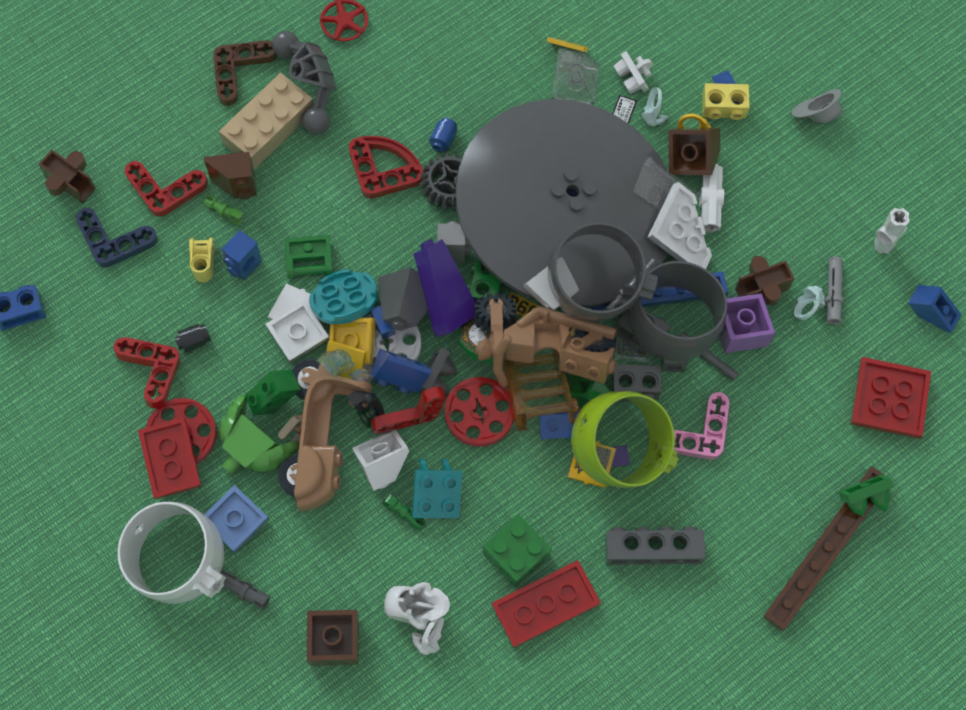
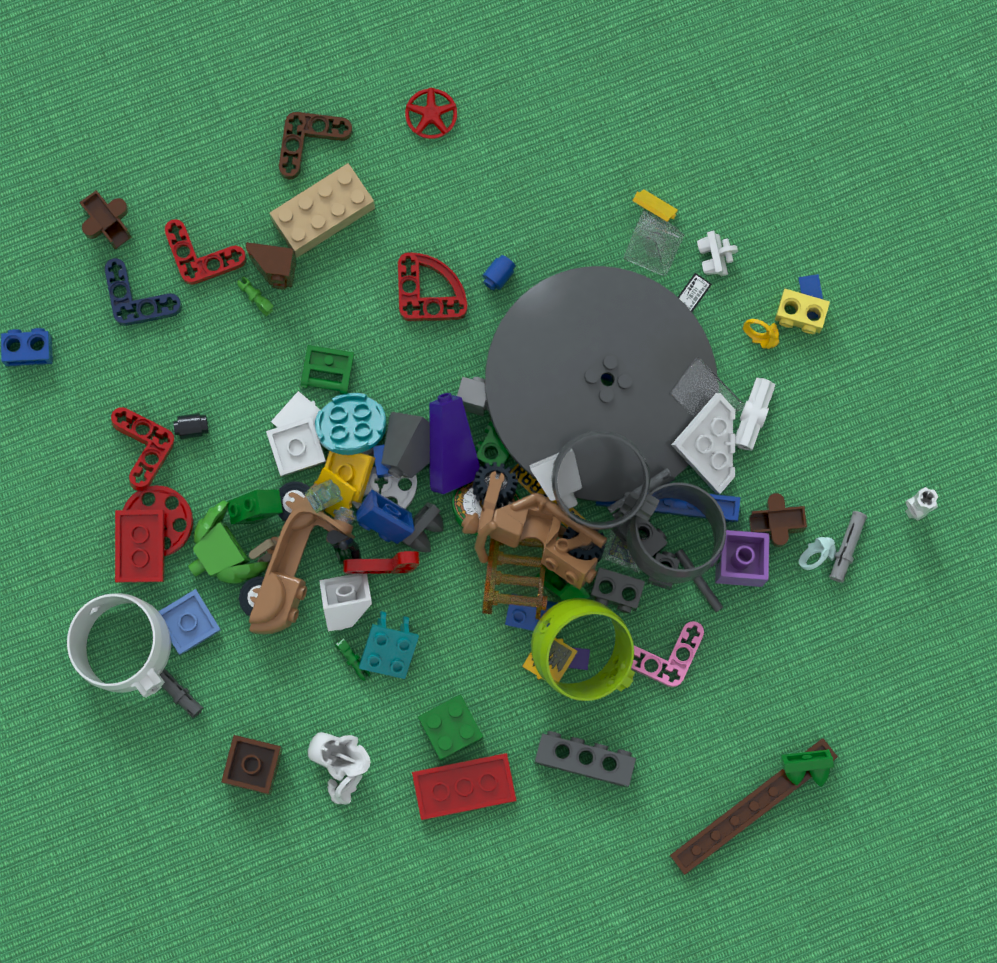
camera: 15 degrees right, 10 degrees up
(202, 254) = (220, 338): light yellow piece -> none
(241, 255) = (259, 354): blue brick -> none
(311, 67) = (379, 168): dark grey piece -> none
(437, 190) = (481, 328): dark grey gear -> none
(472, 419) = (444, 570): red wedge -> none
(652, 112) = (721, 303): light aqua piece -> none
(693, 150) = (749, 359): reddish brown slope -> none
(821, 108) = (898, 344): light grey piece -> none
(891, 397) = (867, 673): red plate -> none
(935, 307) = (943, 592): blue slope -> none

